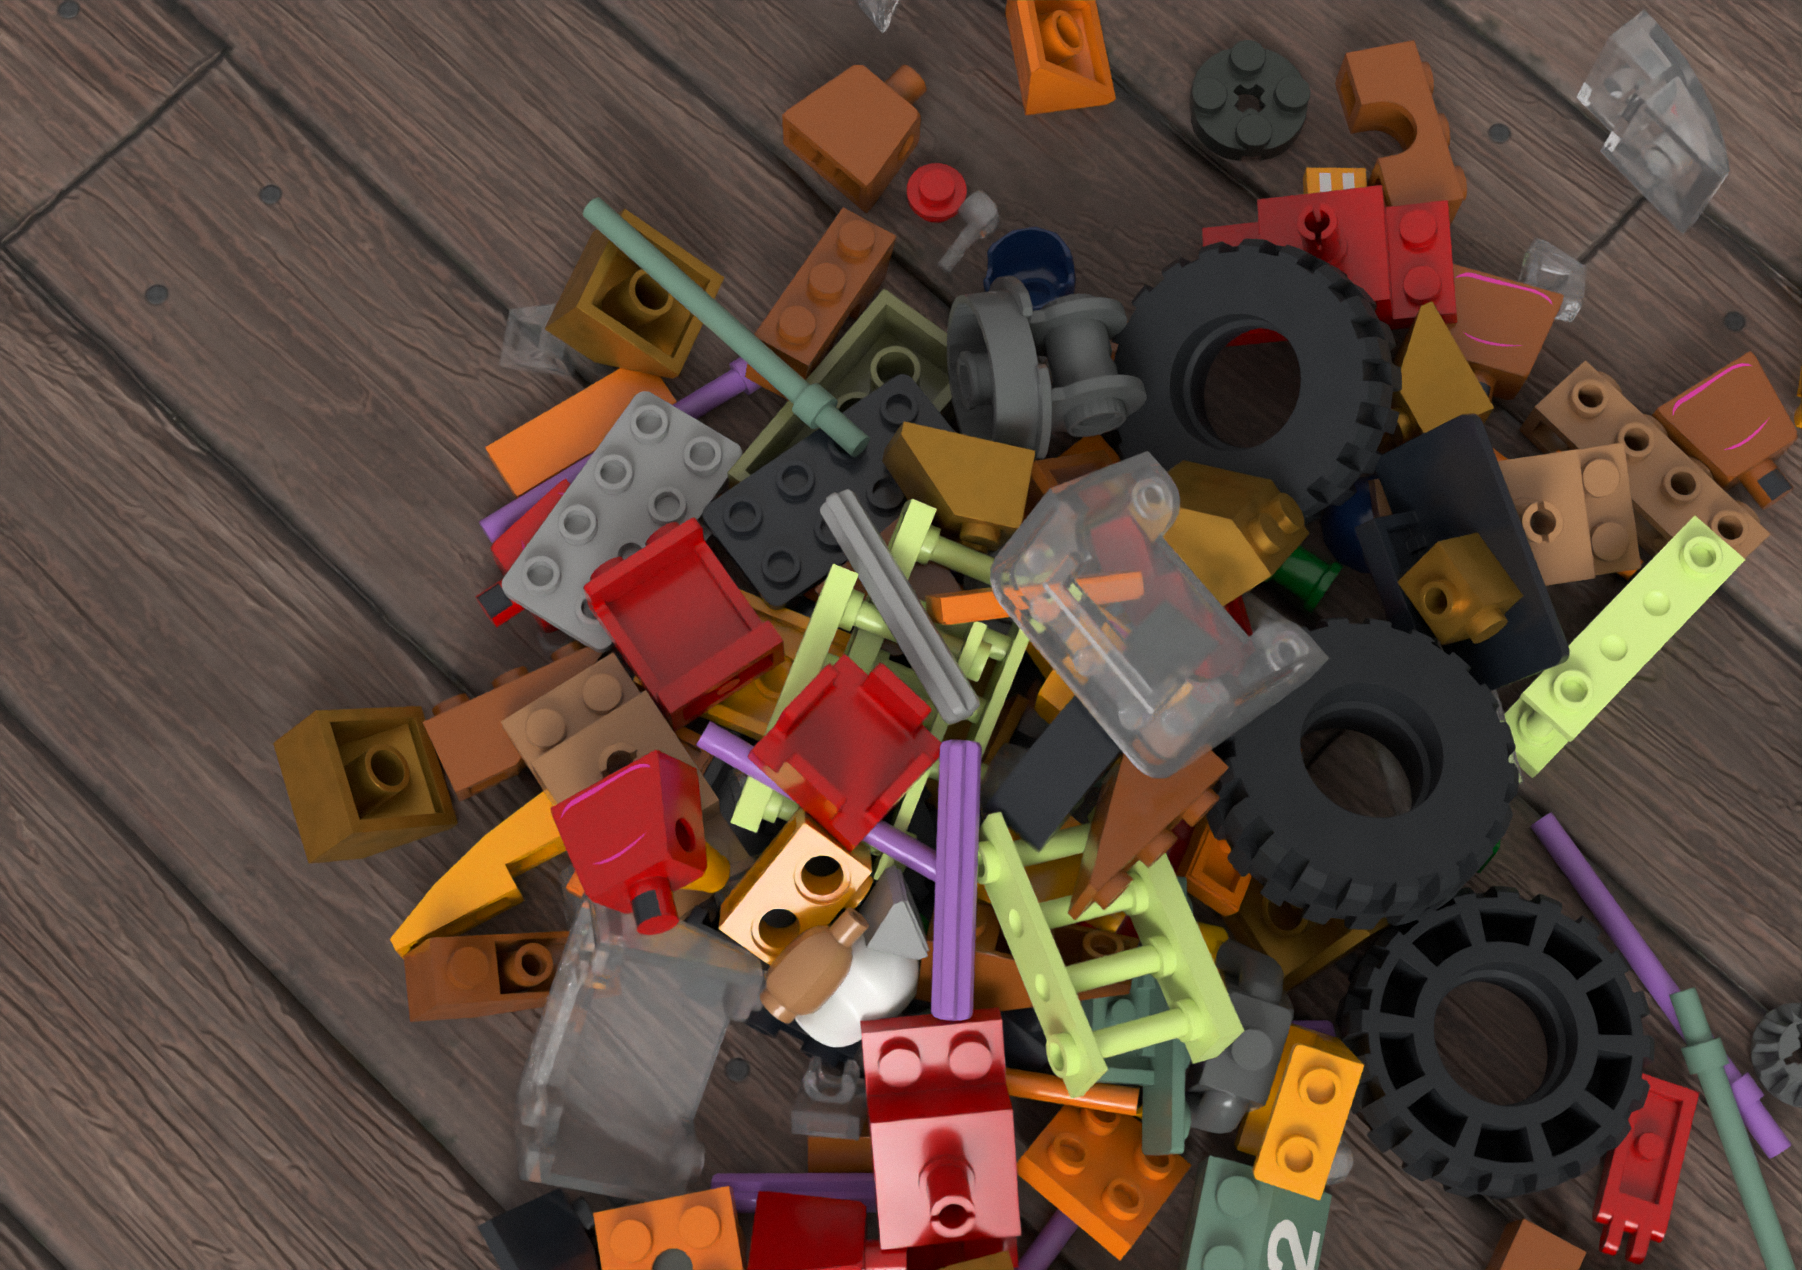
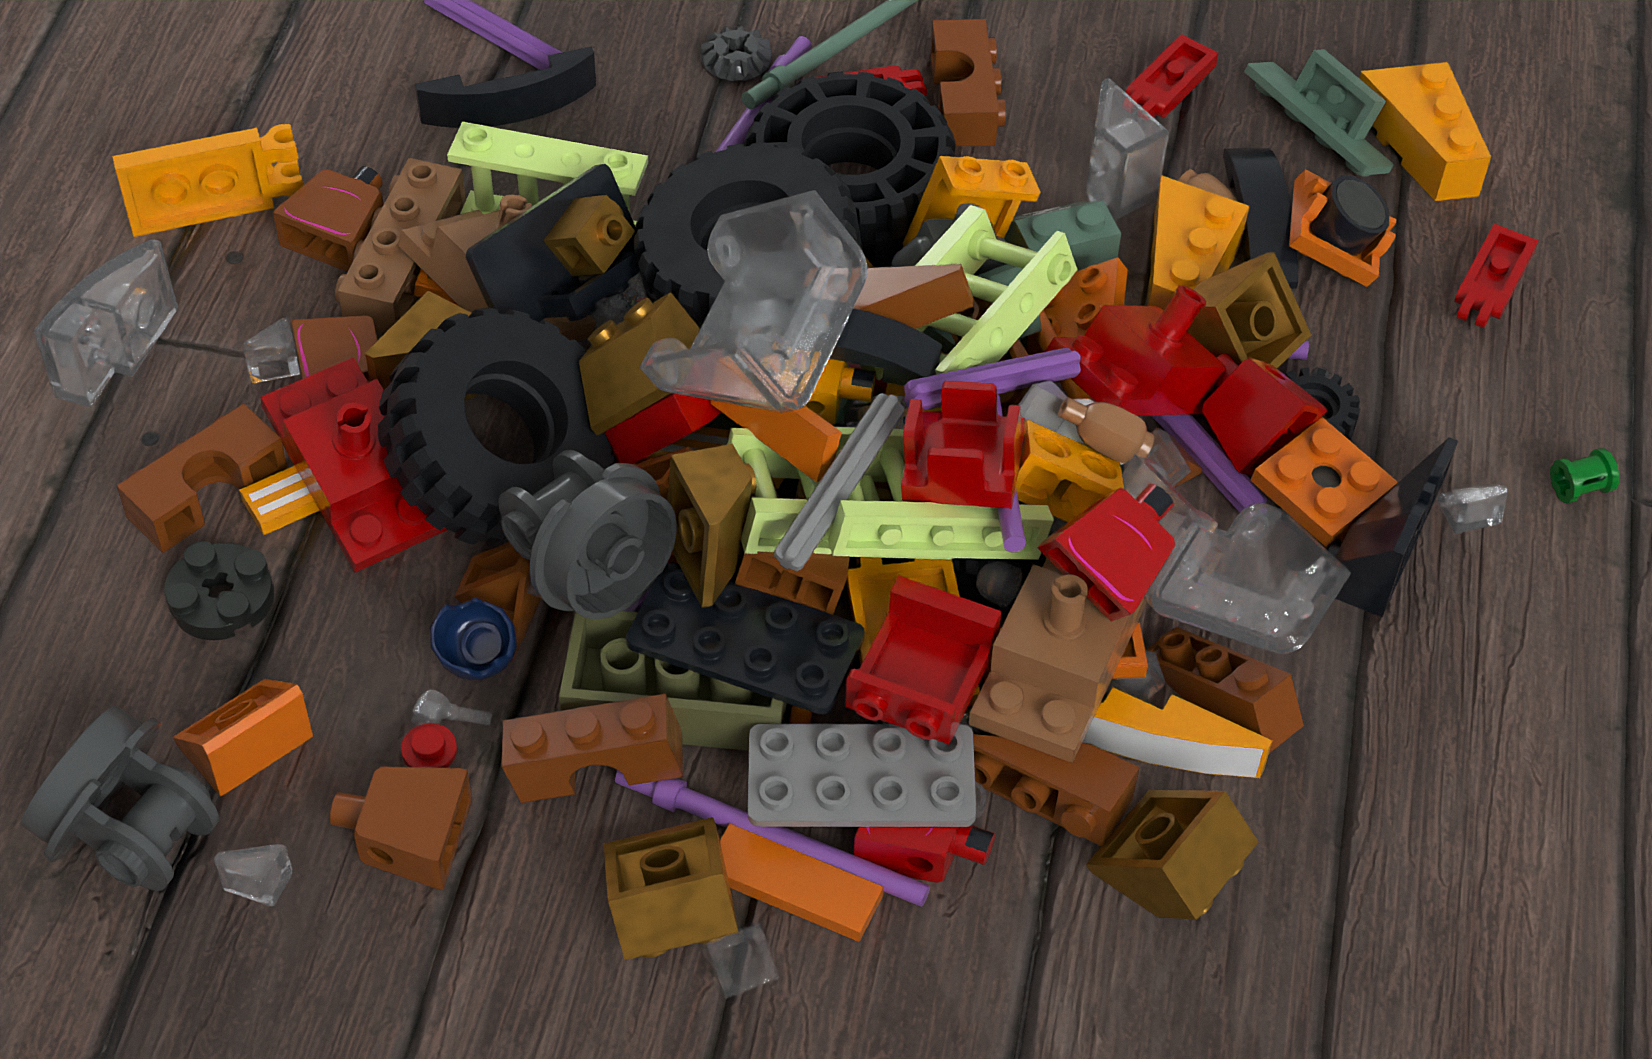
camera: 120 degrees left, 20 degrees down
(811, 402) = (697, 670): sand green bar -> none

